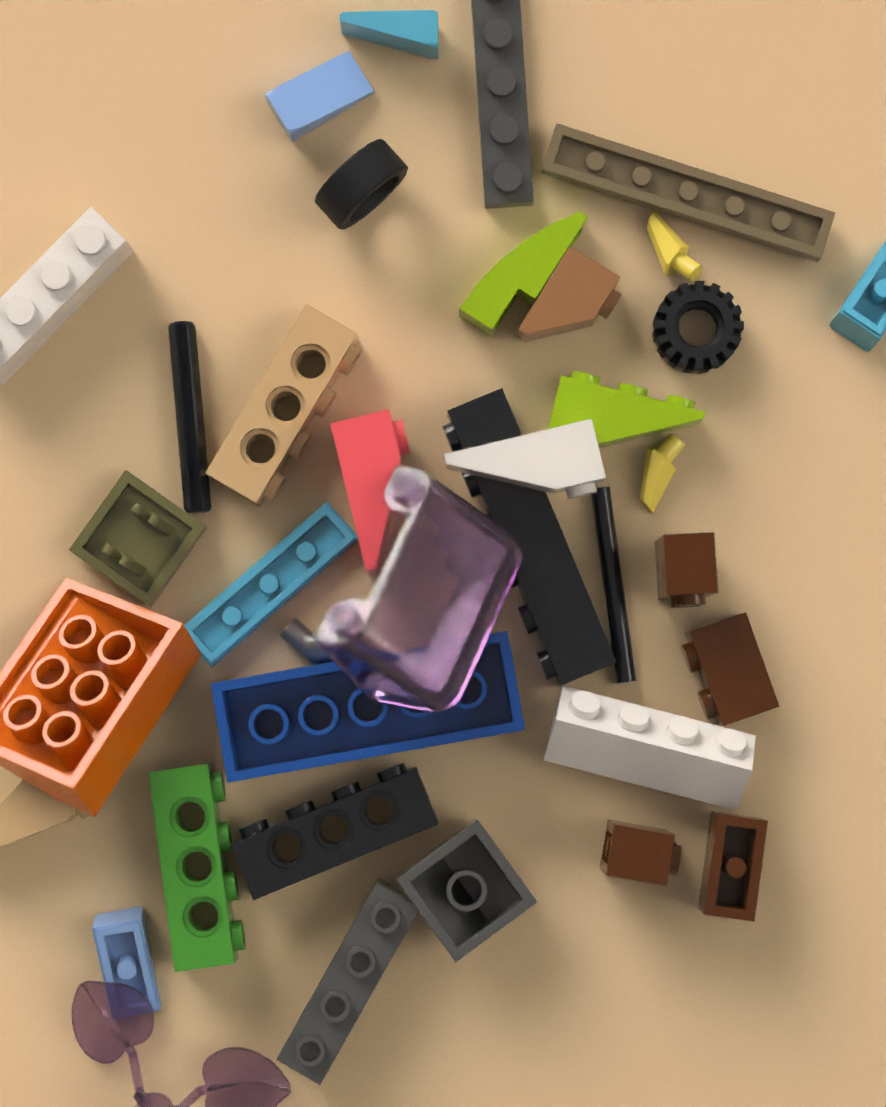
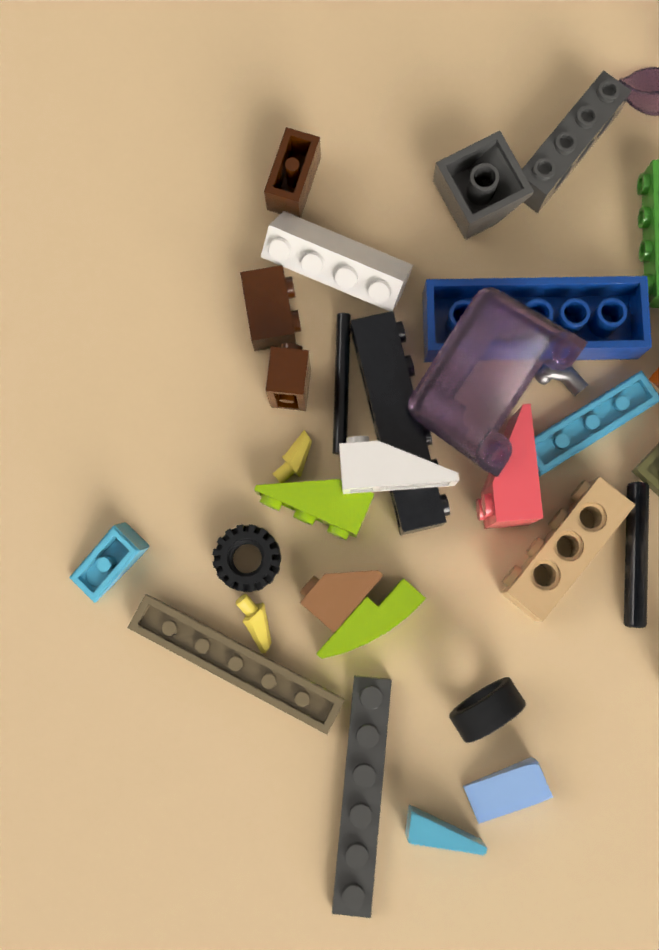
camera: 170 degrees left, 5 degrees down
(268, 872) = (616, 221): black brick -> none
(639, 853) = (357, 188): reddish brown brick -> none

